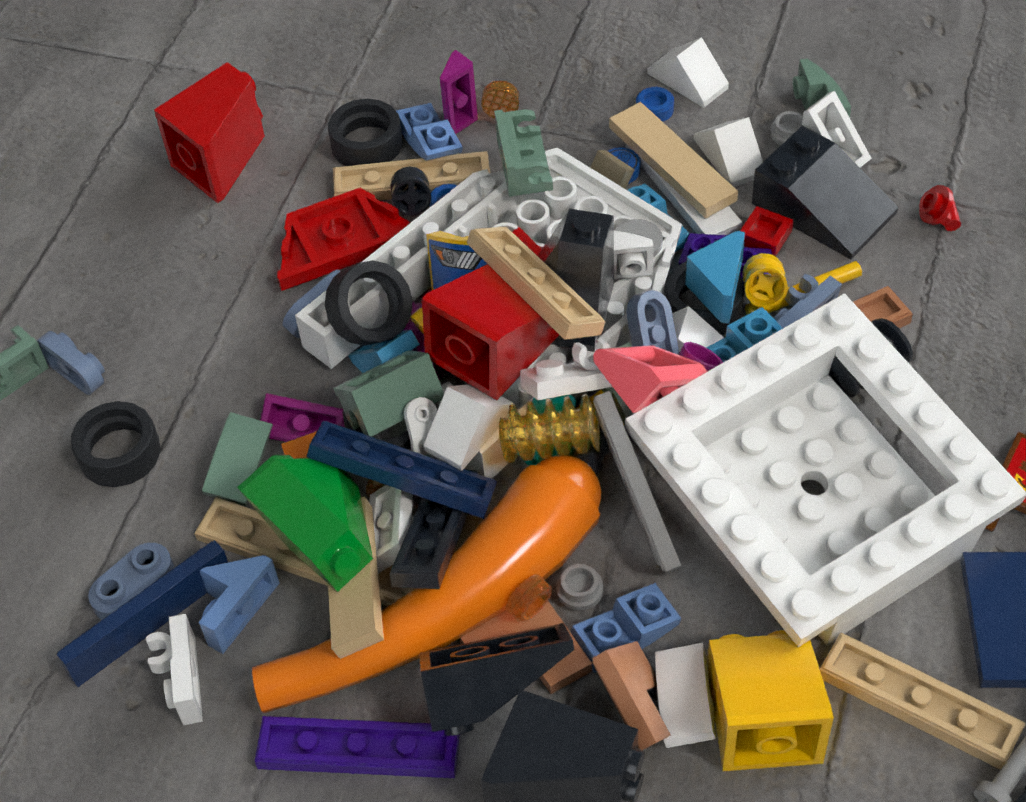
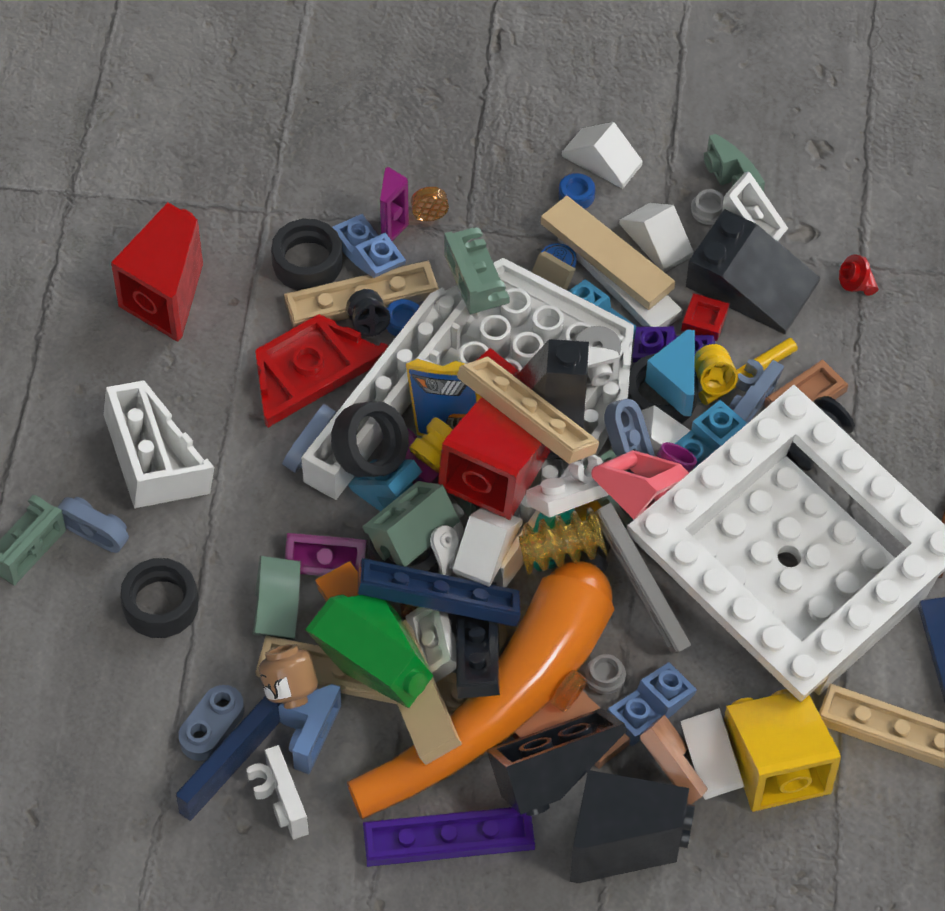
camera: 15 degrees left, 5 degrees up
(151, 295) = (151, 449): none -> white wedge
(209, 537) = (288, 675): none -> medium nougat head

